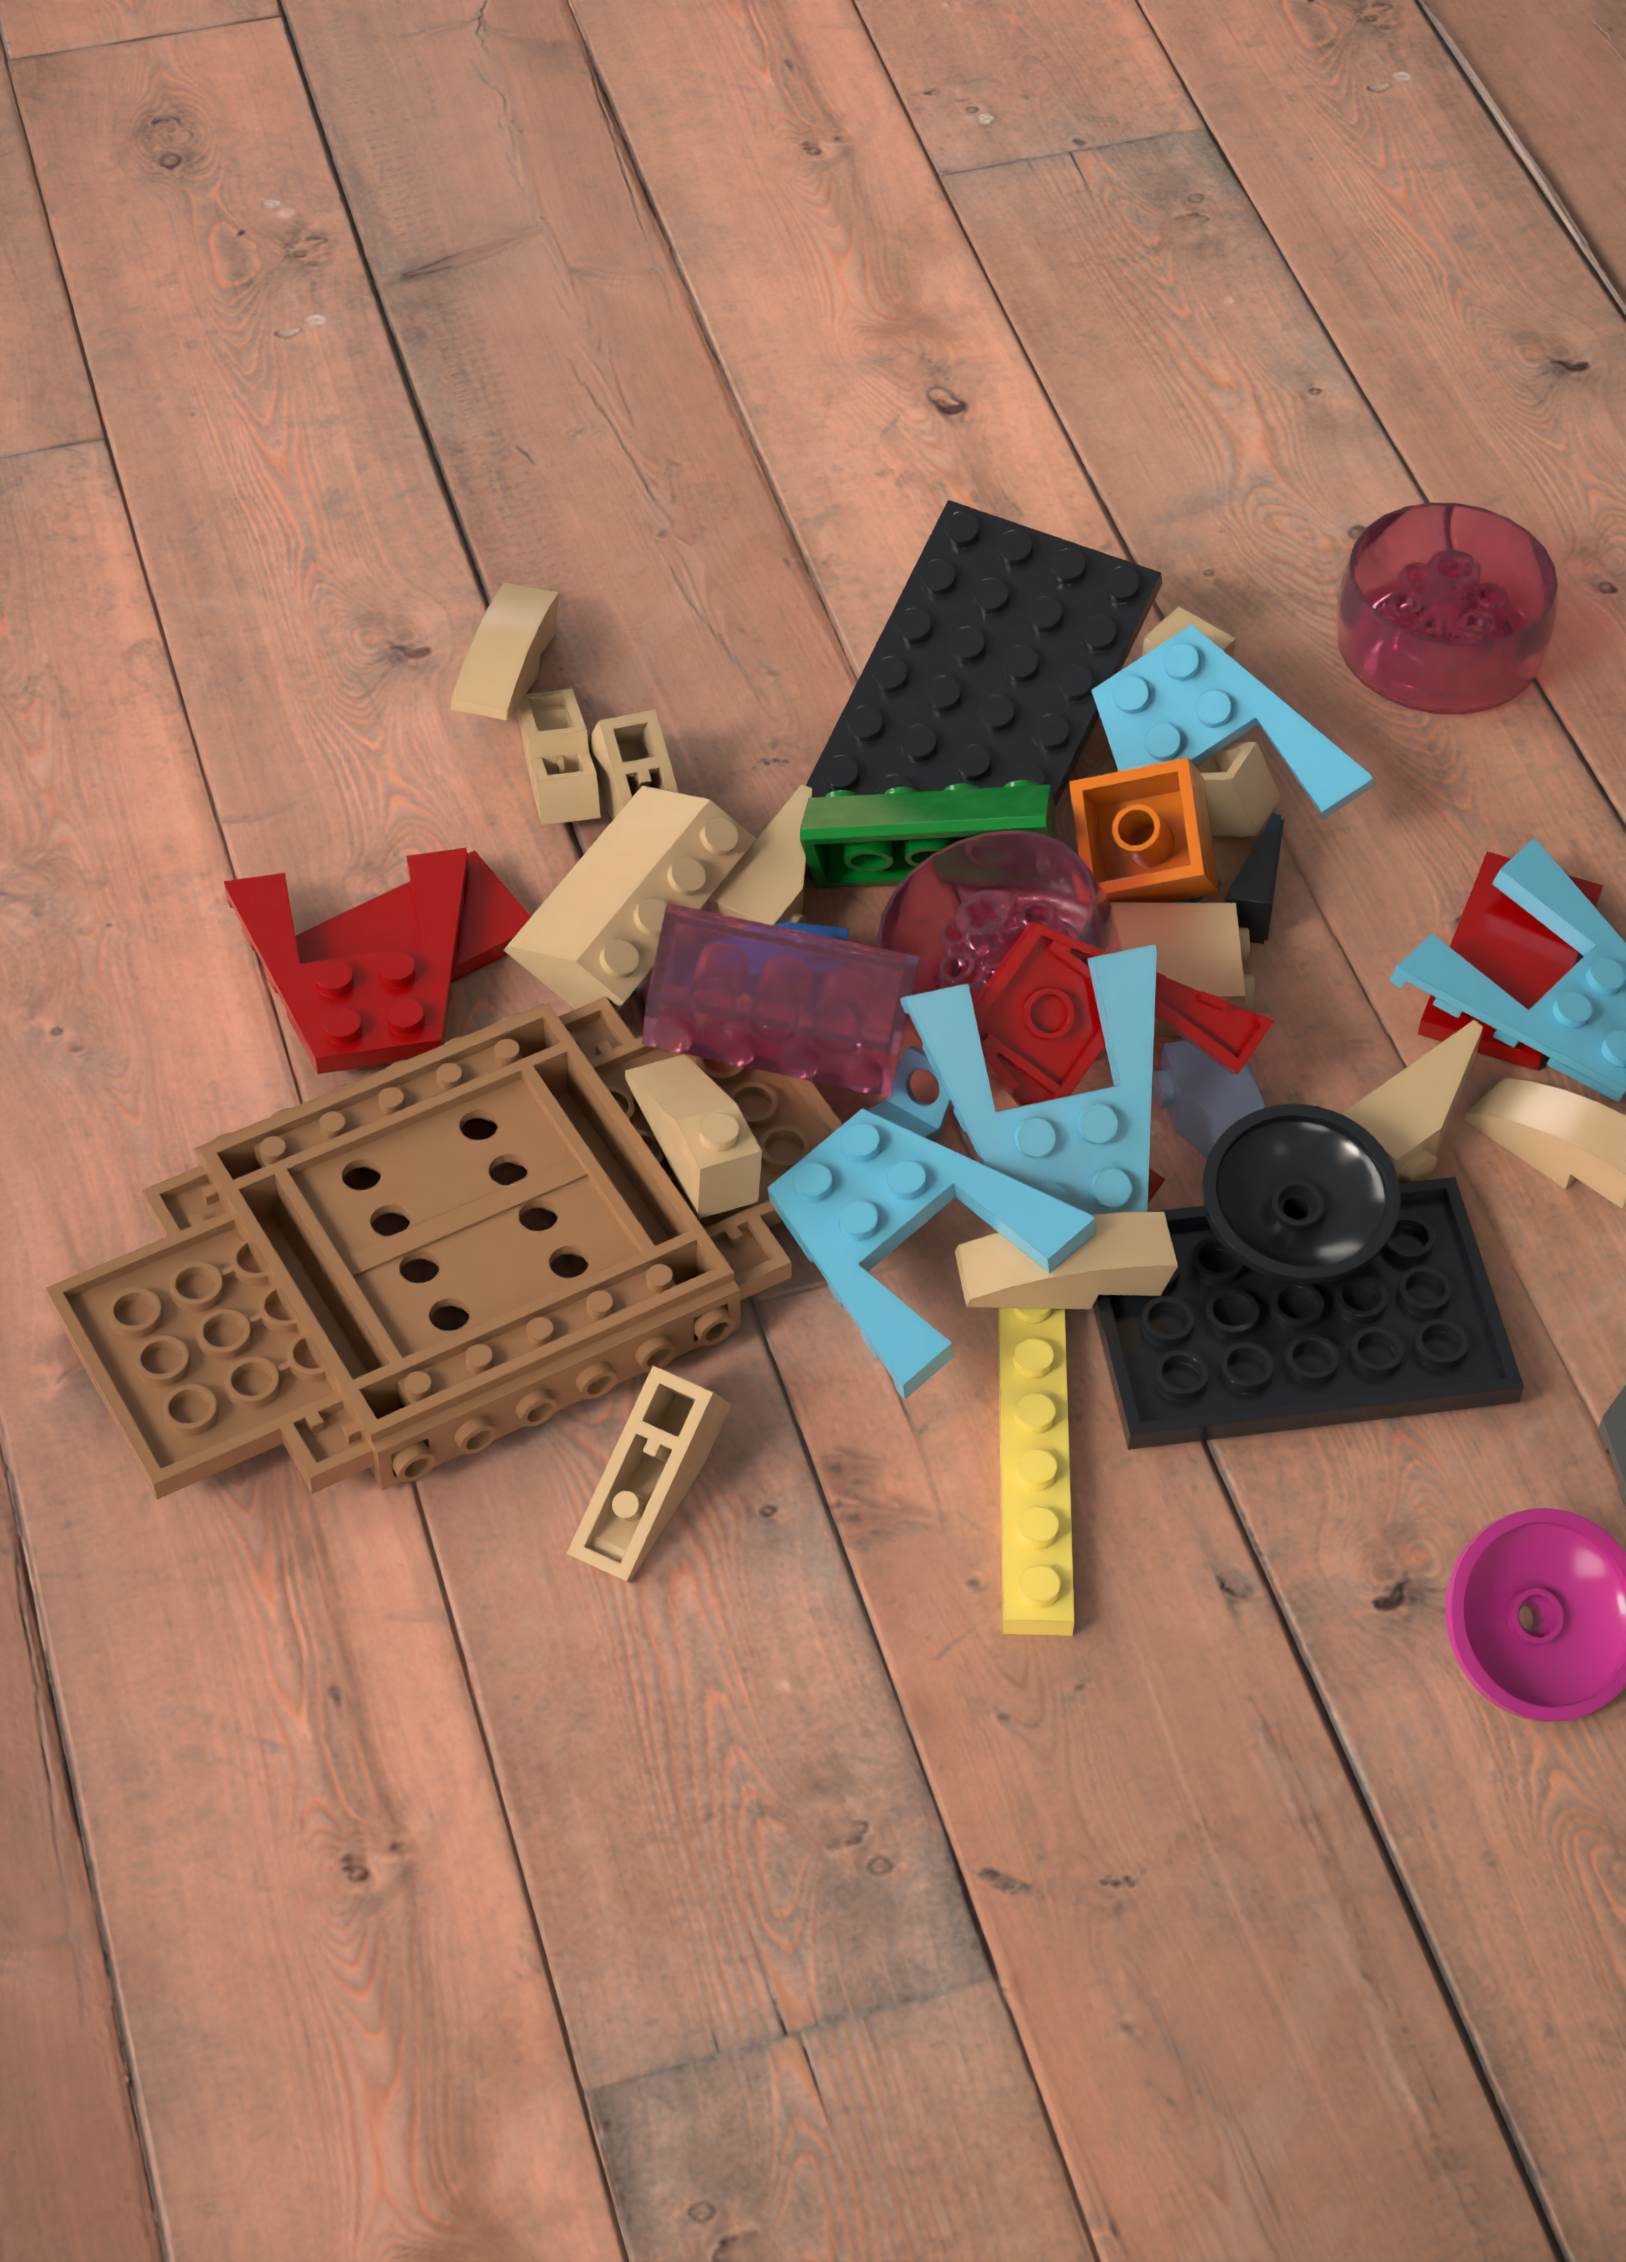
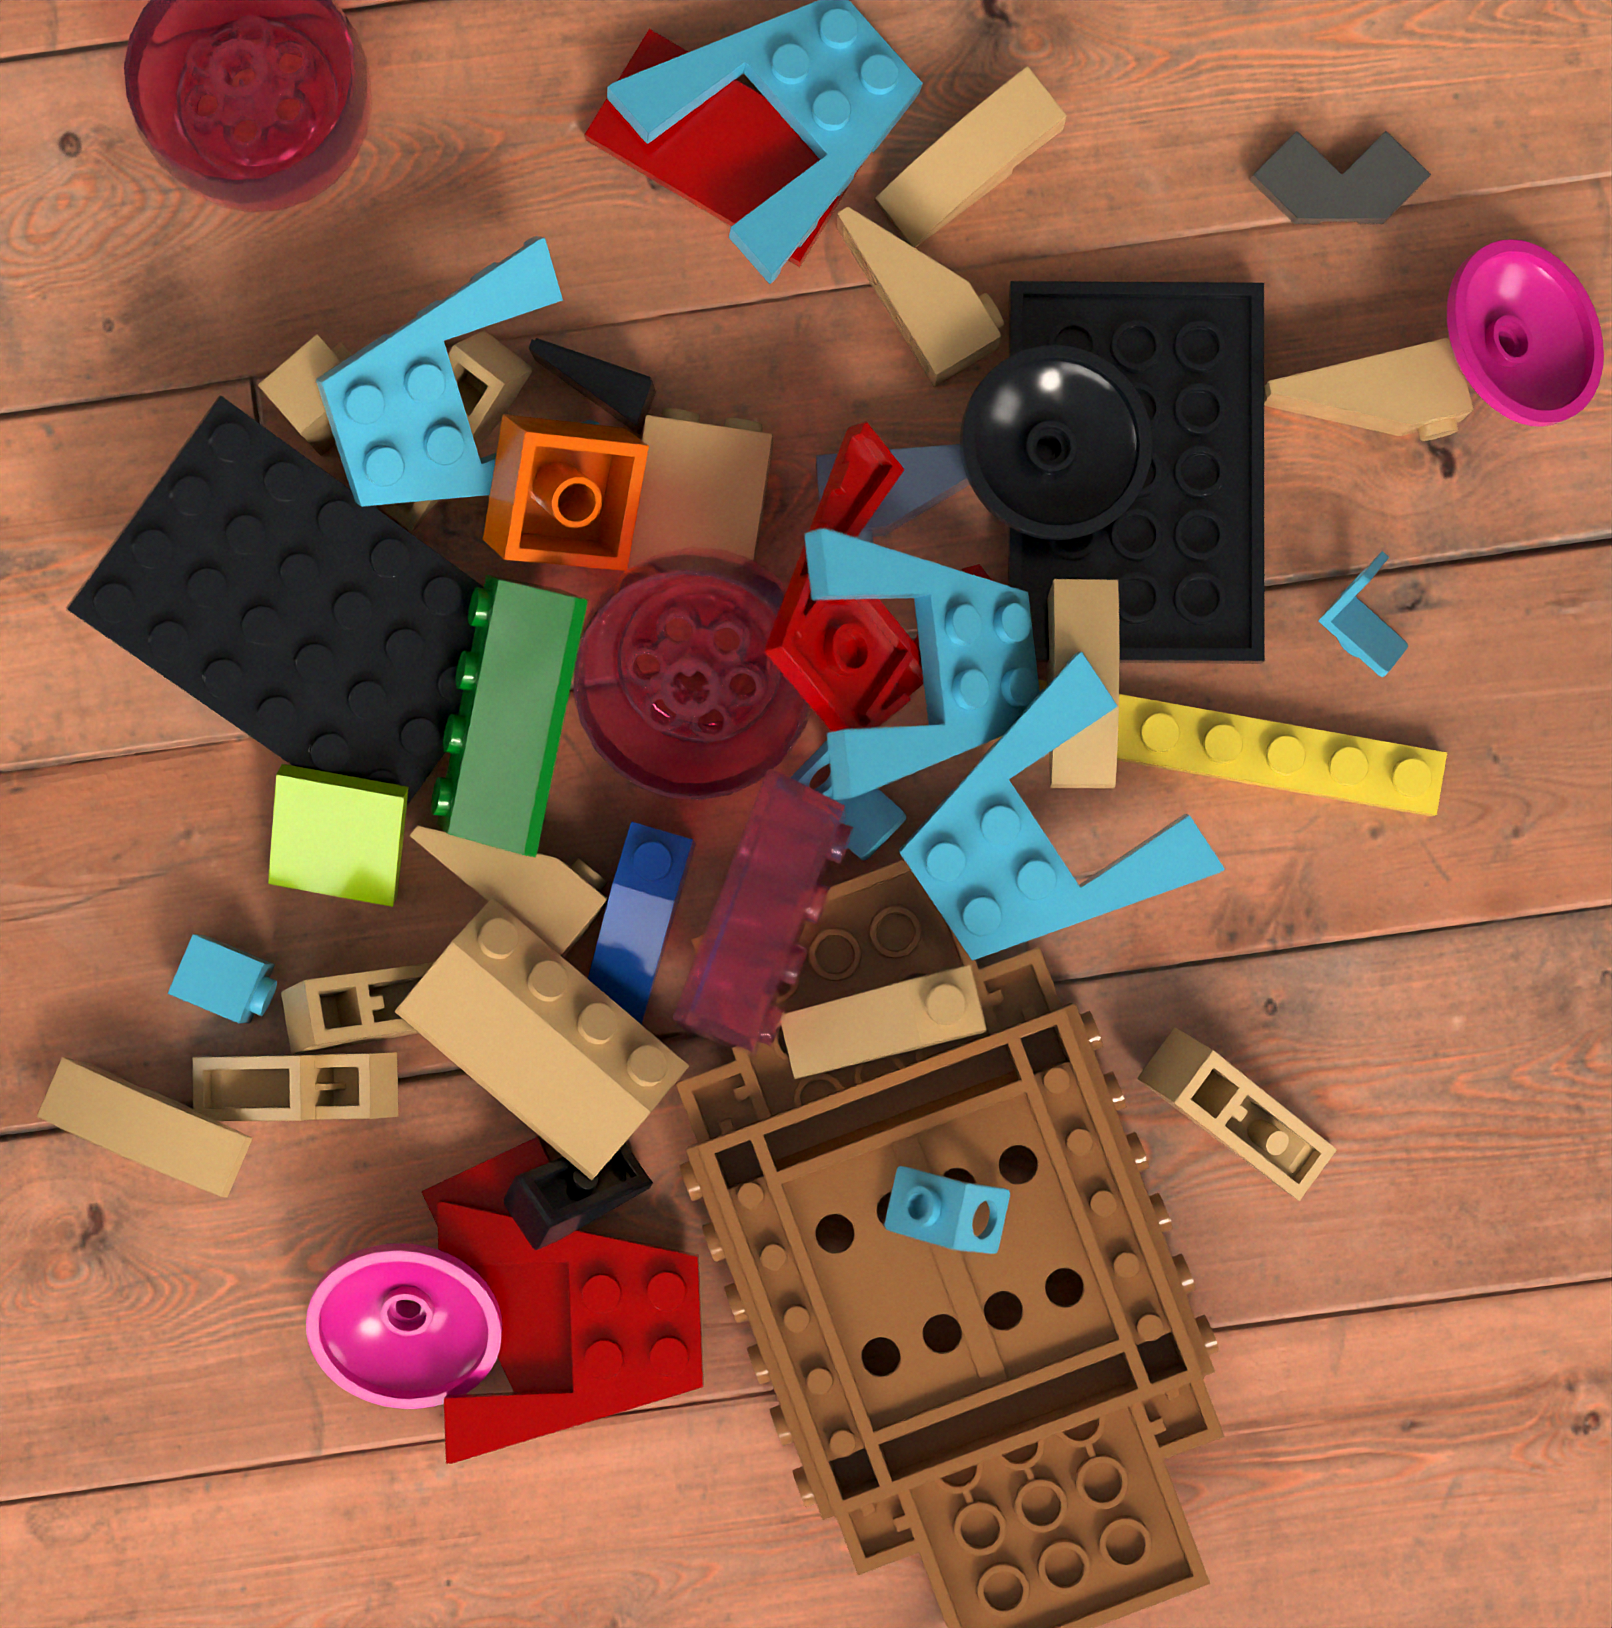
camera: 75 degrees left, 35 degrees up
(350, 834) = (401, 1349): none -> dark pink dish
(480, 930) = (562, 1199): none -> black slope
(517, 1170) = (944, 1209): none -> medium azure bracket
(648, 681) = (224, 980): none -> medium azure brick
(791, 746) = (337, 835): none -> tile
(1196, 1515) = (1360, 629): none -> medium azure bracket
(1440, 1497) = (1385, 392): none -> tan slope

